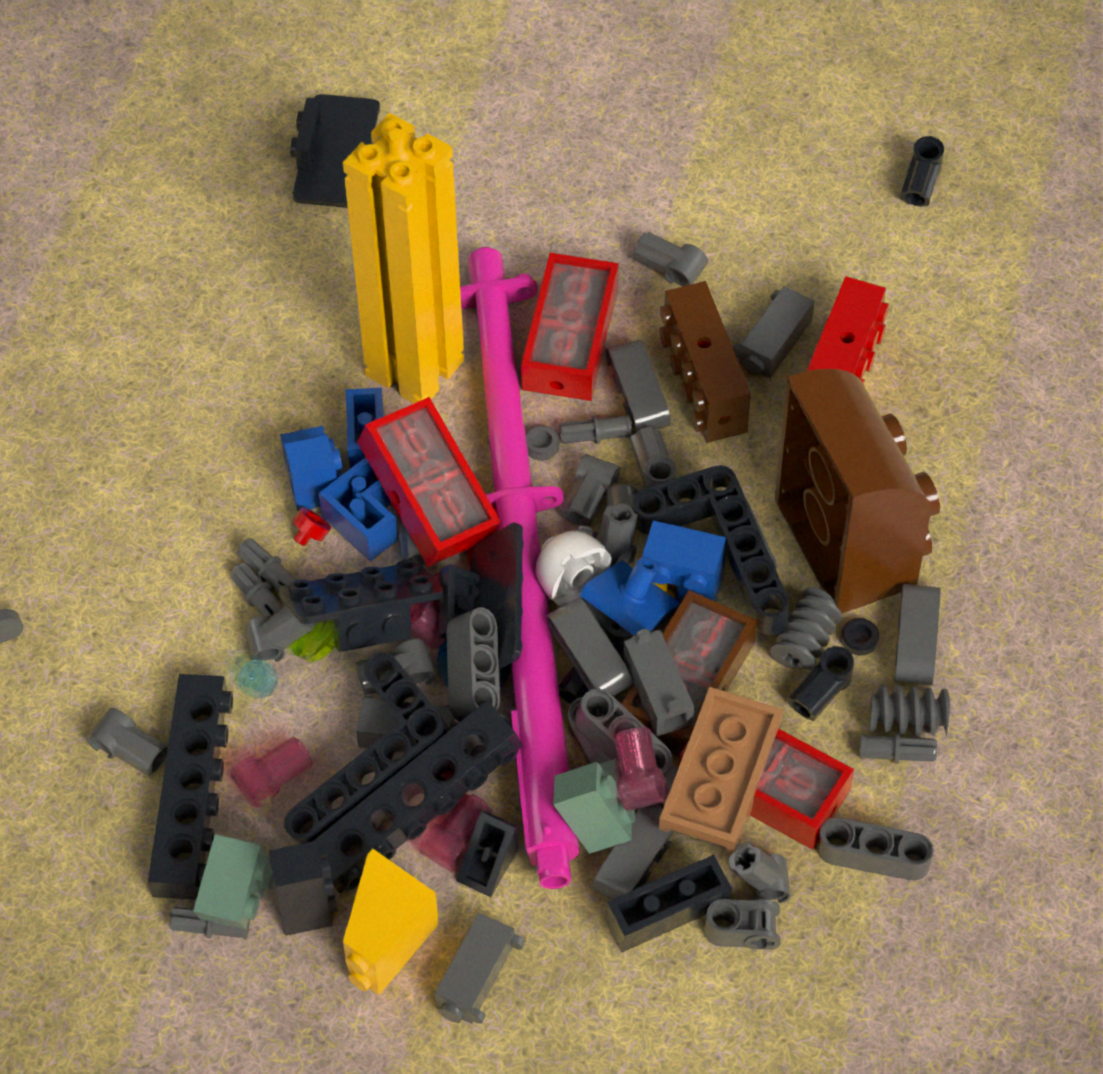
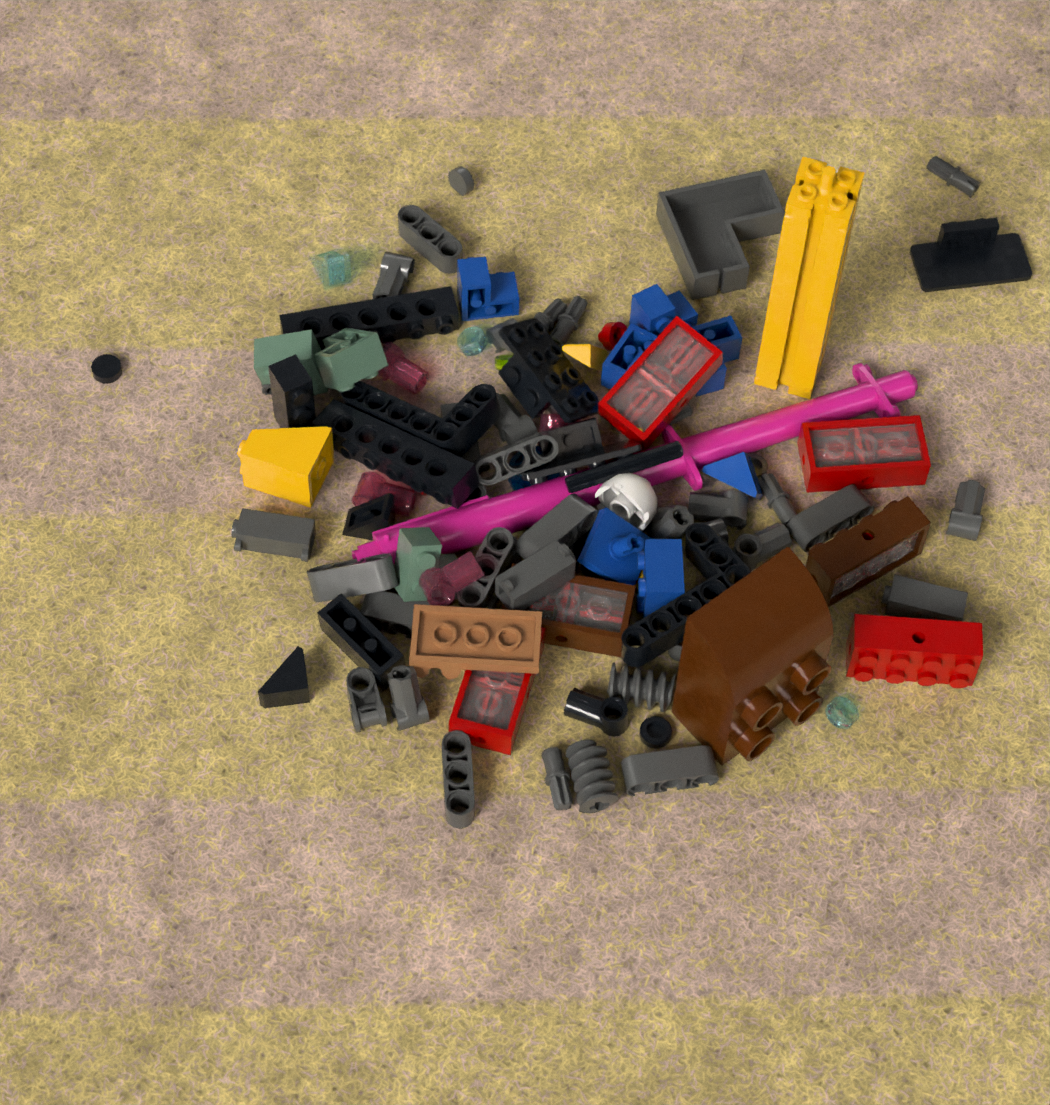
camera: 70 degrees right, 0 degrees up
(78, 807) = (332, 268): none -> clear light blue slope
(95, 670) = (429, 238): none -> dark grey beam
(194, 387) = (708, 223): none -> dark grey piece
(196, 638) = (485, 294): none -> blue brick
(210, 126) = (953, 176): none -> dark grey axle
(258, 807) = (350, 358): none -> sand green brick
(339, 554) = (587, 354): none -> yellow slope
(534, 551) = (626, 465): none -> black axle
(554, 454) = (736, 472): none -> blue slope
(580, 892) = (352, 577): none -> dark grey beam
(692, 998) = (287, 684): none -> black slope

